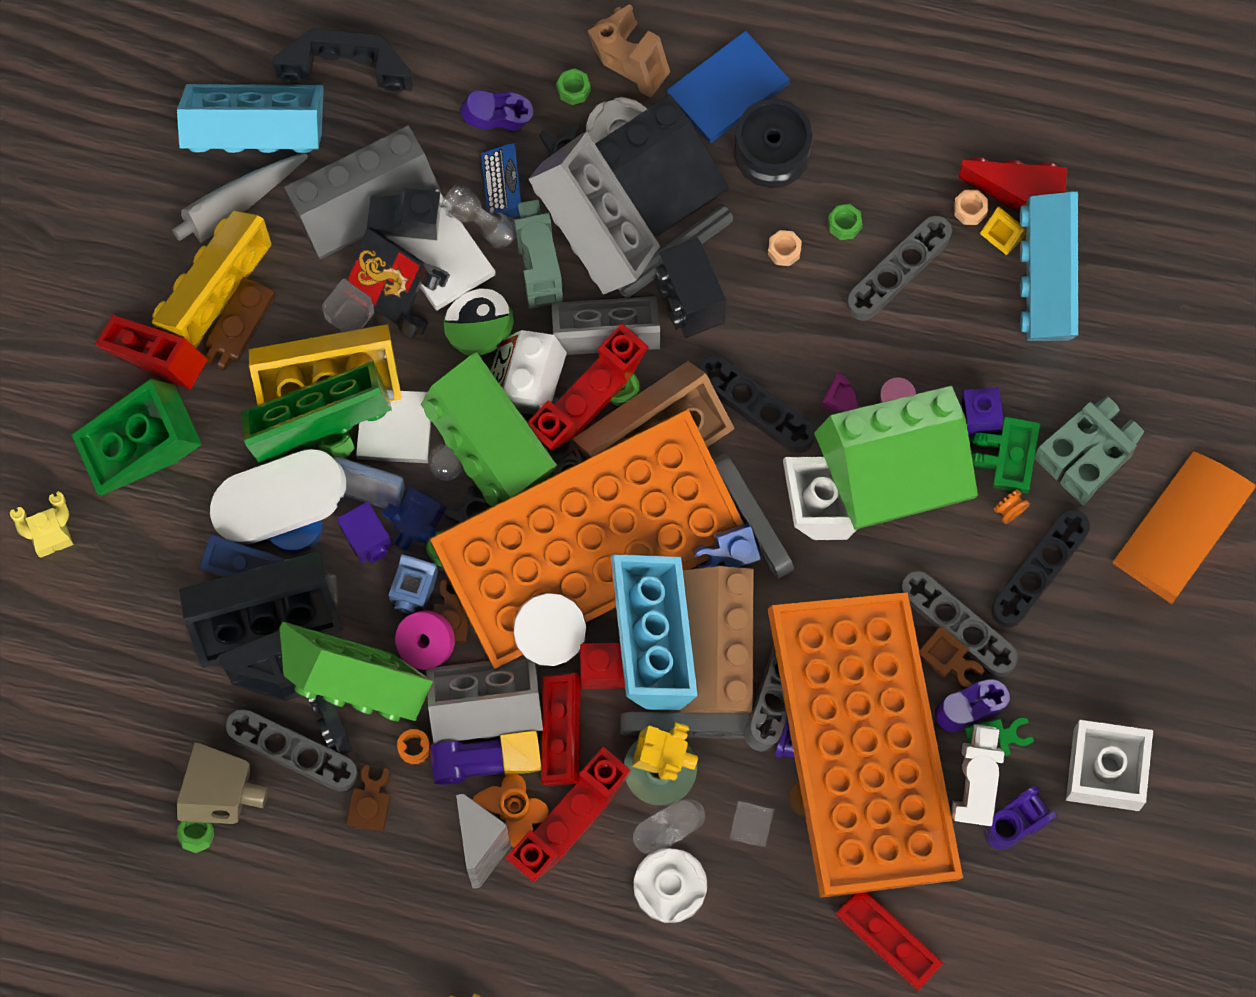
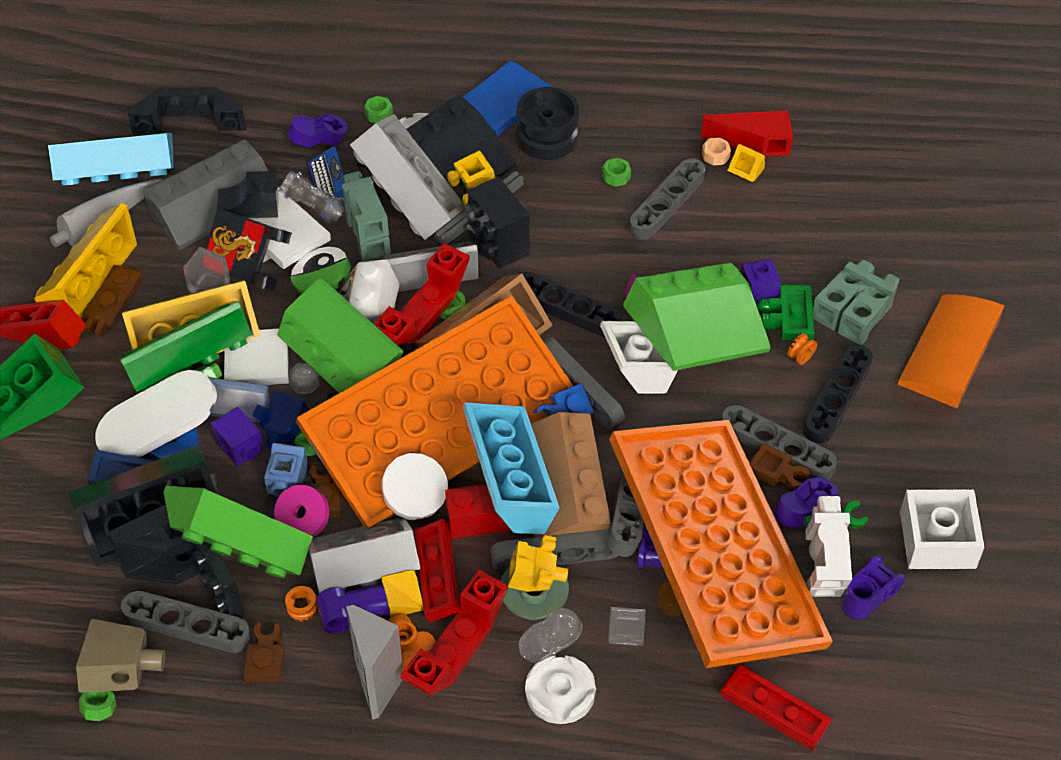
camera: 10 degrees left, 20 degrees down
(639, 62) = (418, 80): medium nougat tile -> none
(673, 221) = (473, 172): none -> yellow piece
(784, 248) = (570, 194): light nougat tile -> none
(1050, 267) = (794, 172): medium azure slope -> none

